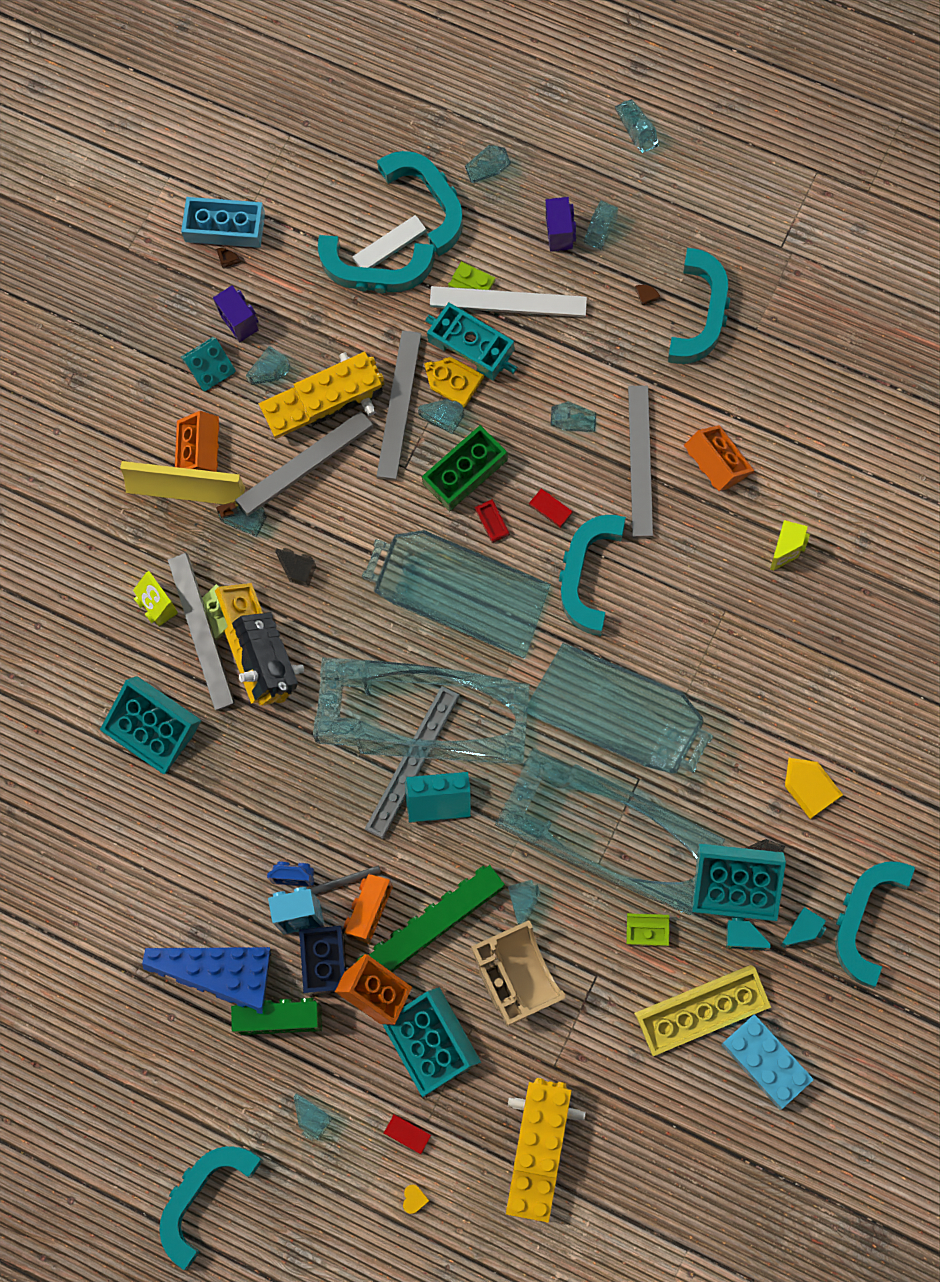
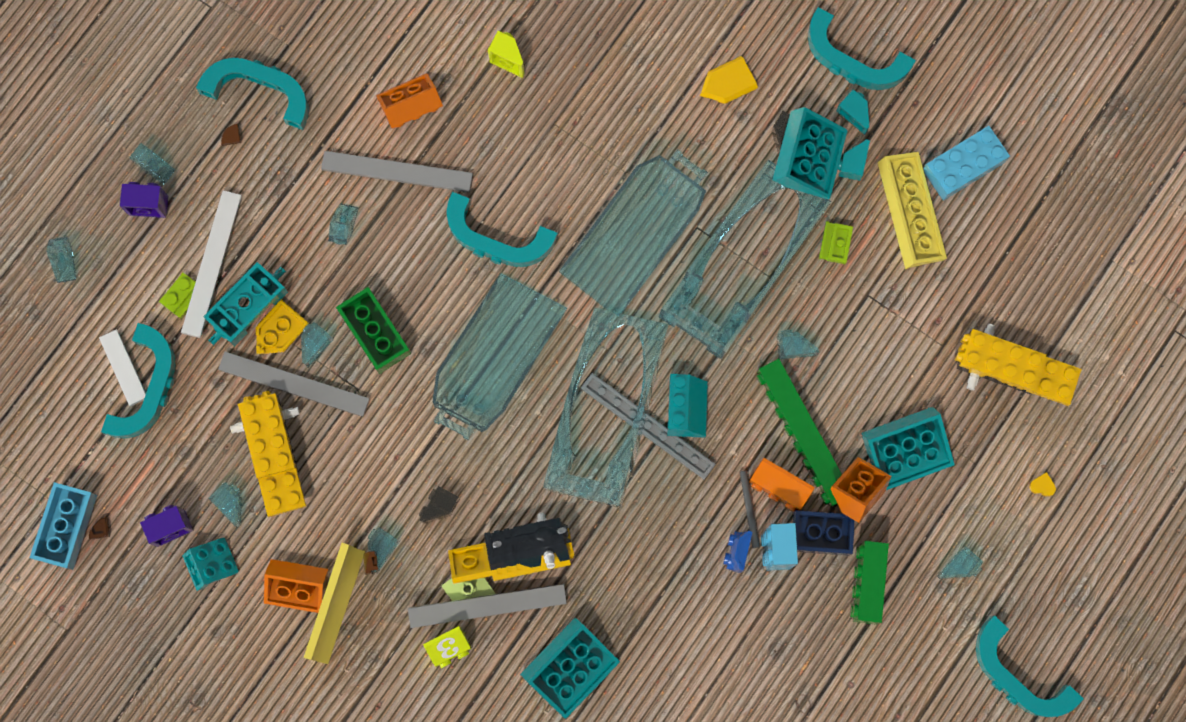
camera: 90 degrees left, 5 degrees up
(230, 972) = (820, 624): blue wing -> none
(304, 463) = (337, 482): light grey tile -> none
(407, 1134) = (985, 483): red tile -> none
(414, 164) = (70, 311): teal arch -> none
(492, 521) = (428, 316): red tile -> none
(517, 975) = (866, 360): tan piece -> none
(550, 508) = (426, 260): red tile -> none
(637, 125) = (57, 111): clear light blue slope -> none

